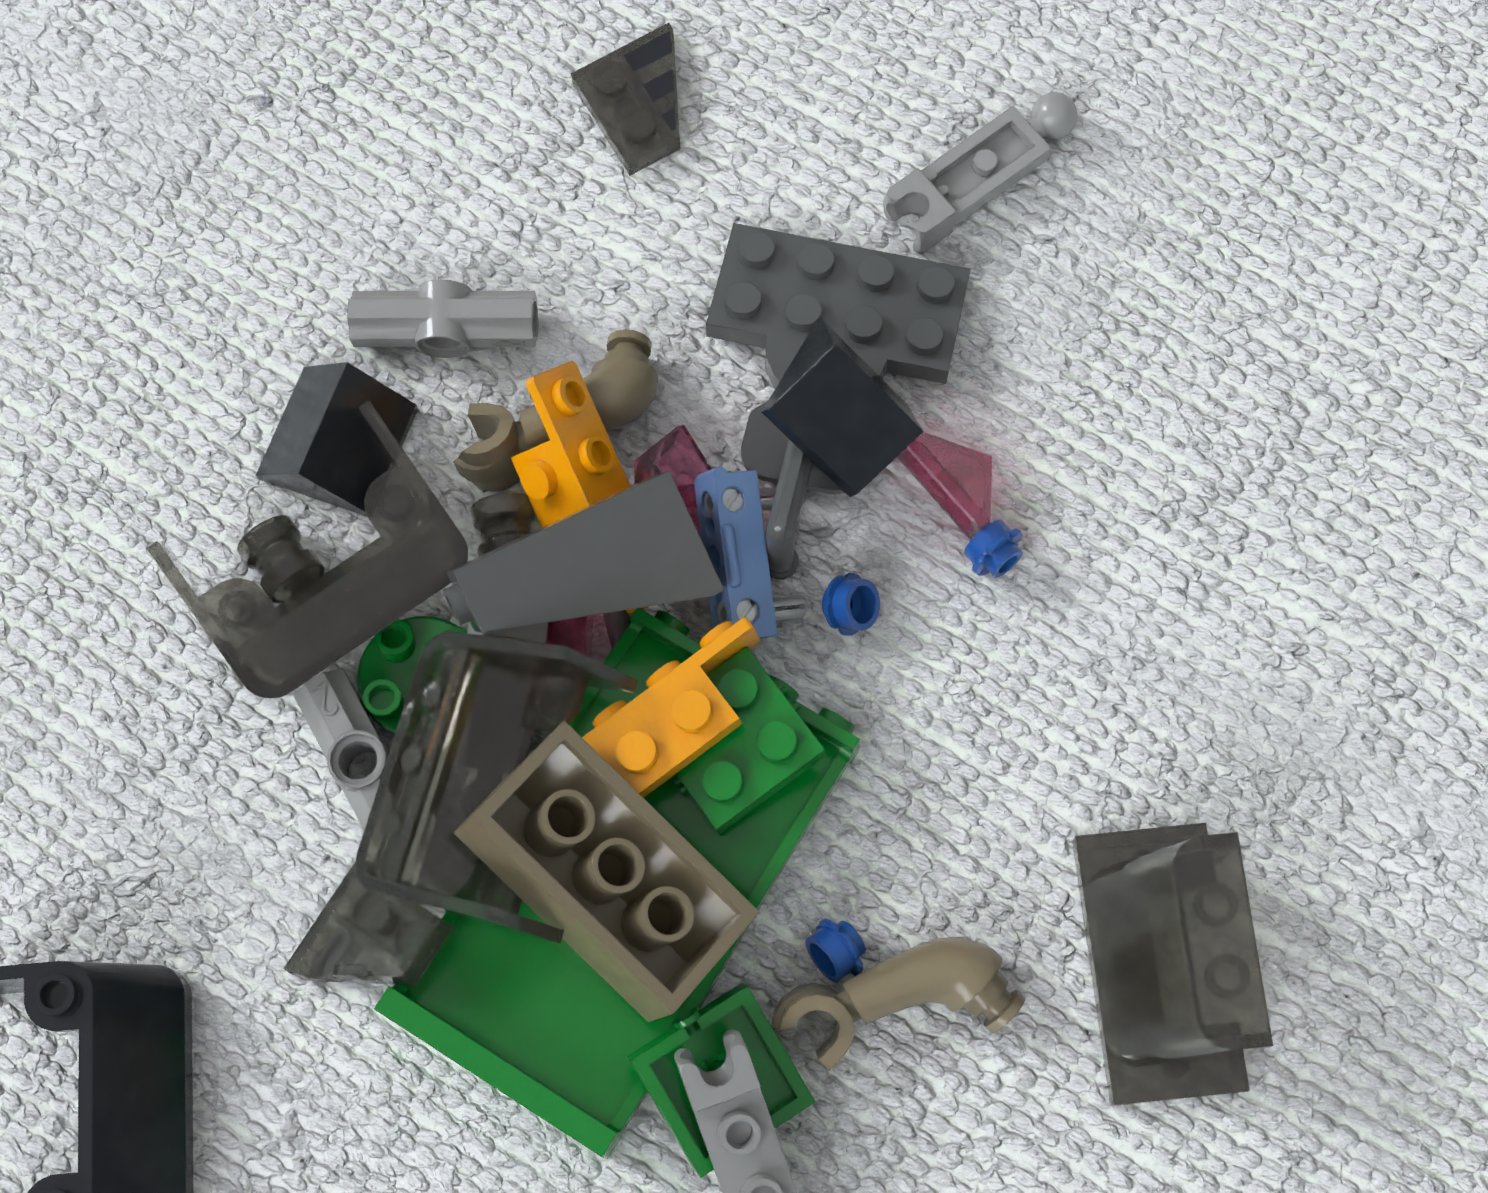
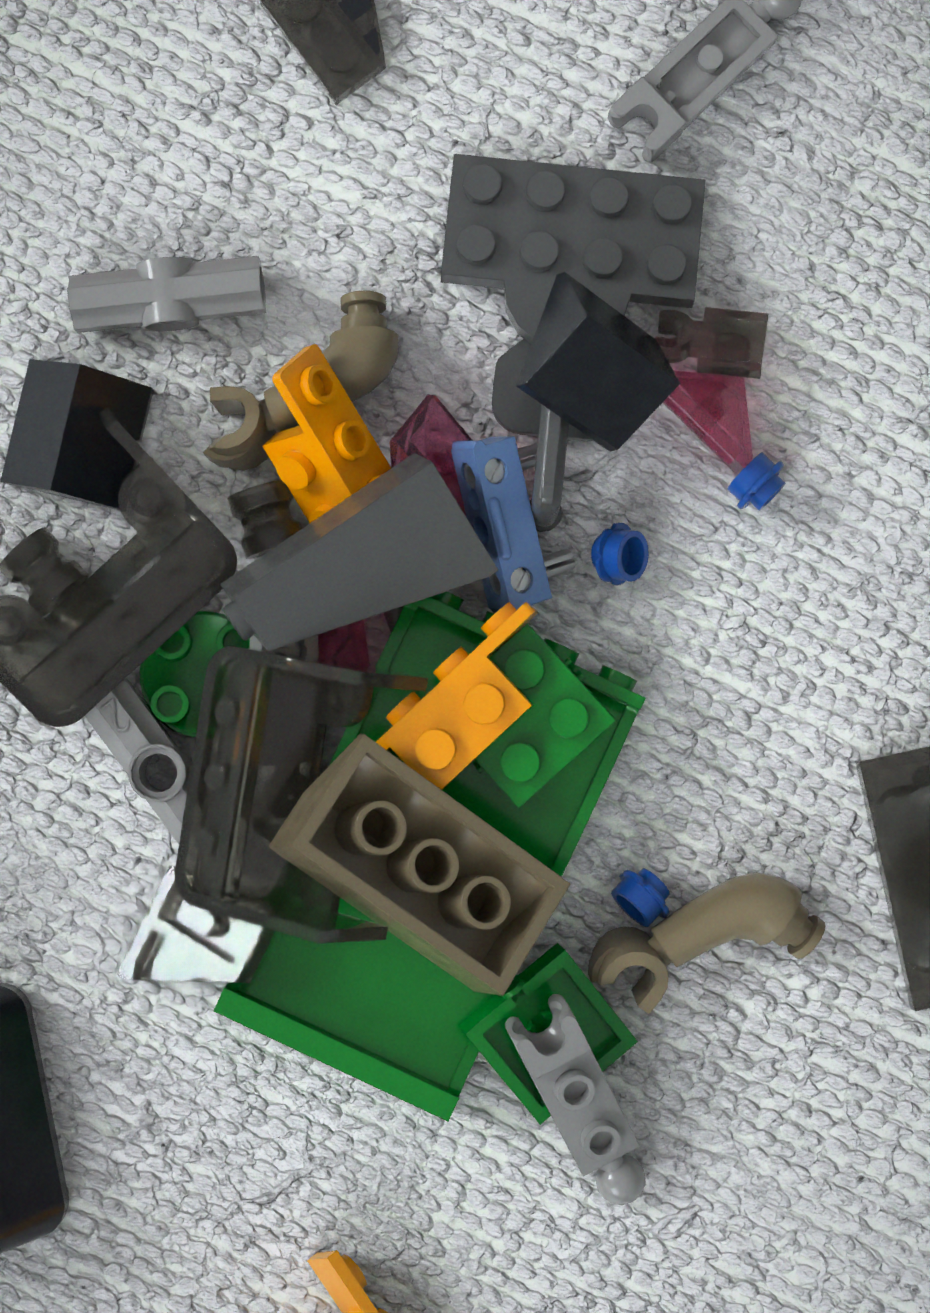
camera: 10 degrees left, 15 degrees up
(970, 416) = (723, 342): none -> clear smoke plate

